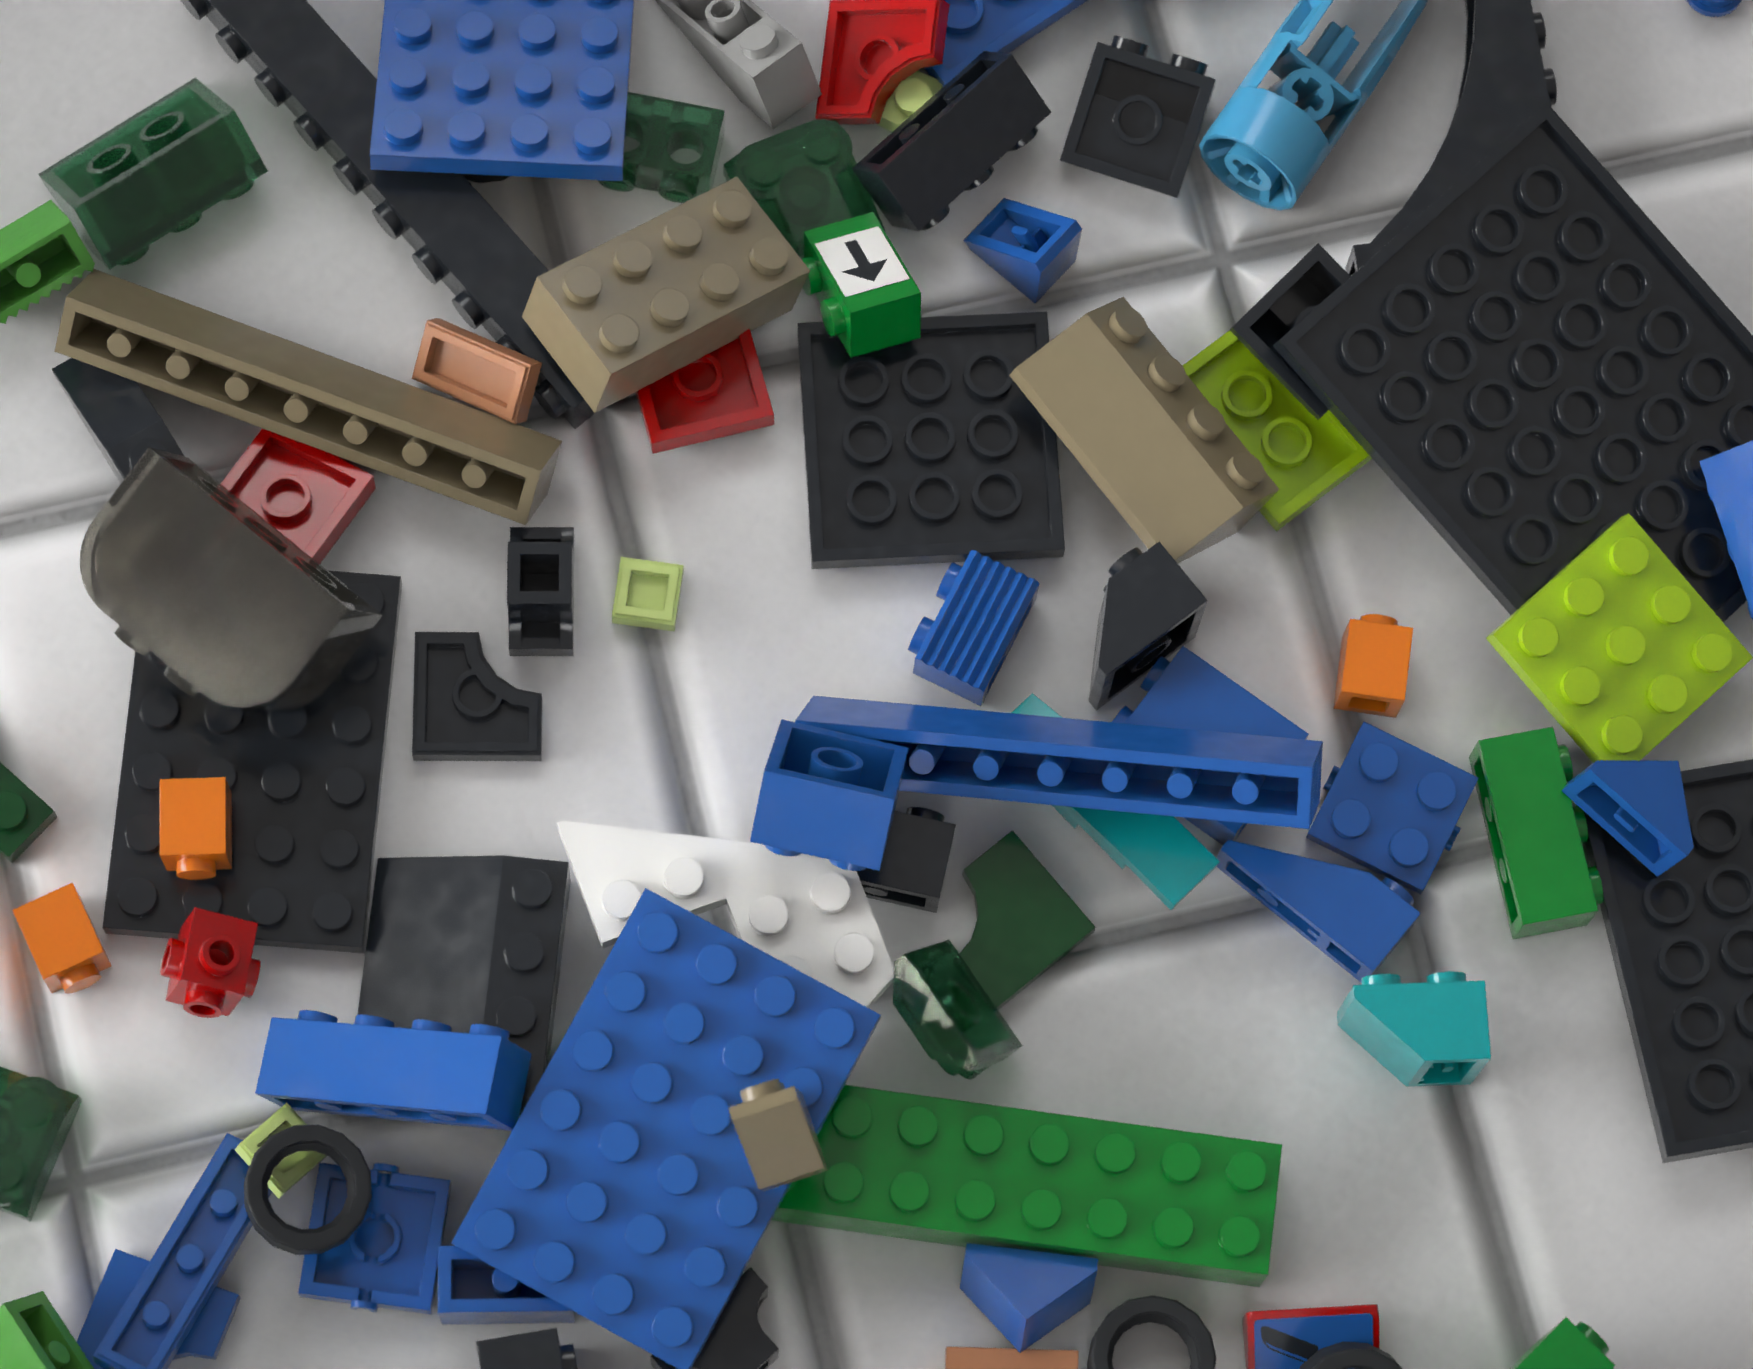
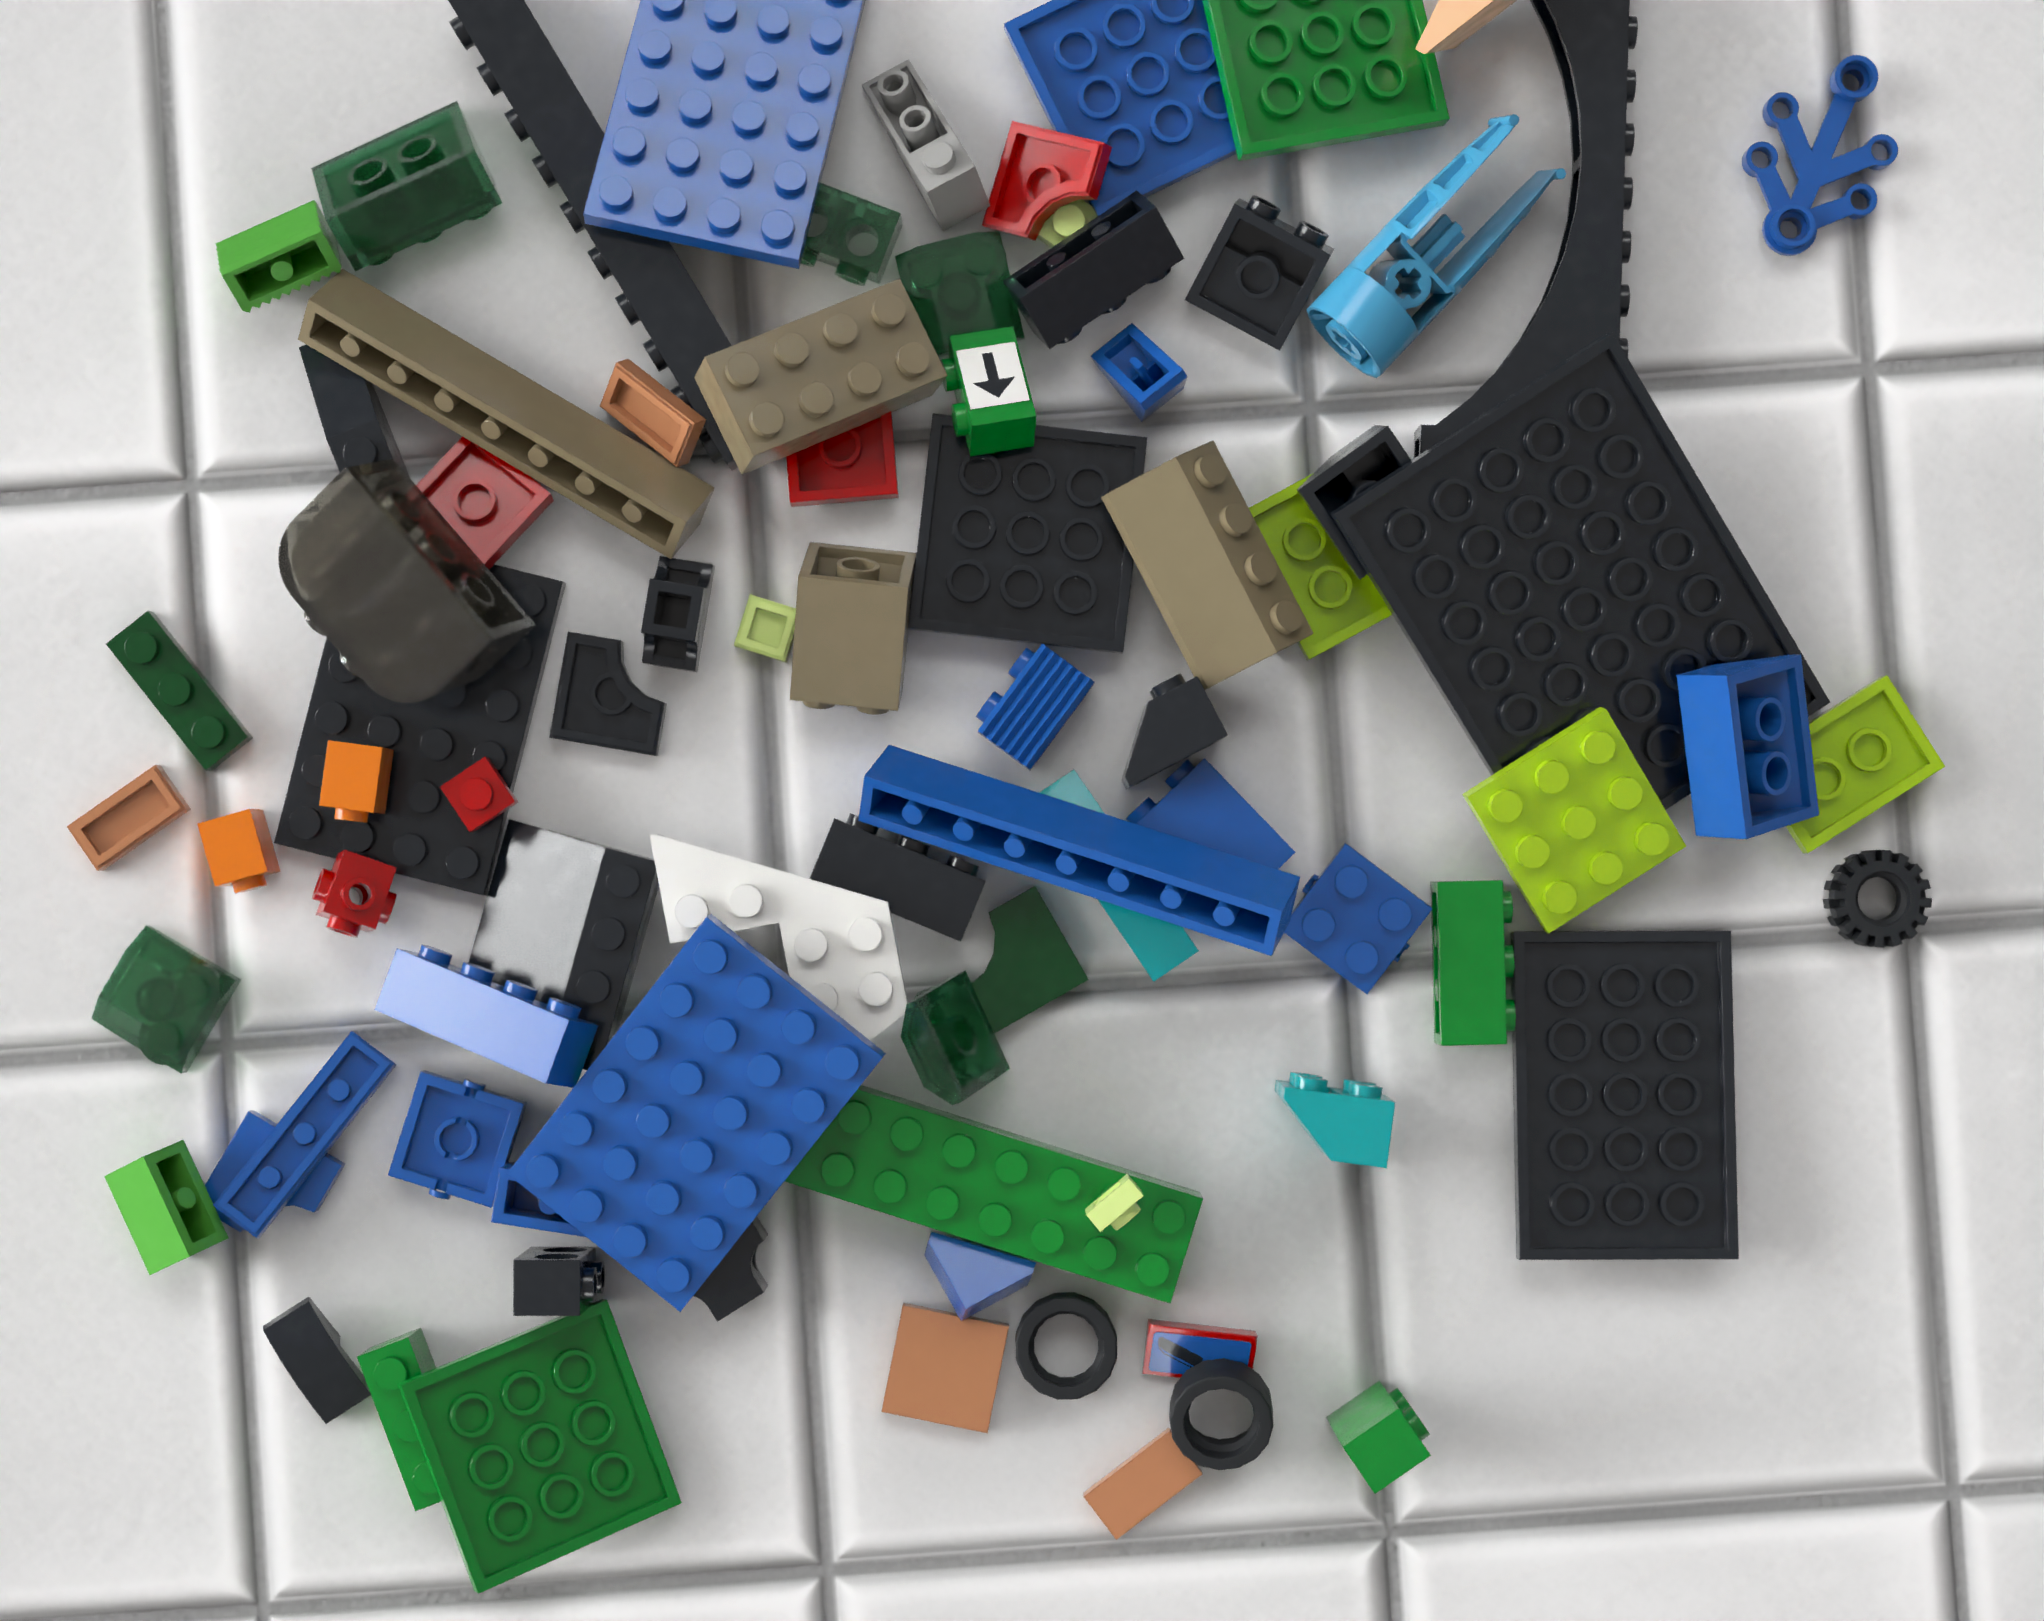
camera: 20 degrees right, 15 degrees up
(292, 1167) = (392, 1056): yellowish green tile -> none
(316, 1139) = (402, 1143): black tyre -> none
(342, 825) = (479, 794): none -> red plate
(749, 574) = (852, 627): none -> dark tan slope
(777, 1134) = (776, 1152): dark tan slope -> none
(828, 796) = (877, 853): blue brick -> none
(1183, 1156) = (1115, 1205): none -> yellowish green plate
(1331, 905) = (1295, 1002): blue slope -> none
(1373, 666) = (1364, 795): orange brick -> none
(1639, 807) = (1560, 966): blue slope -> none

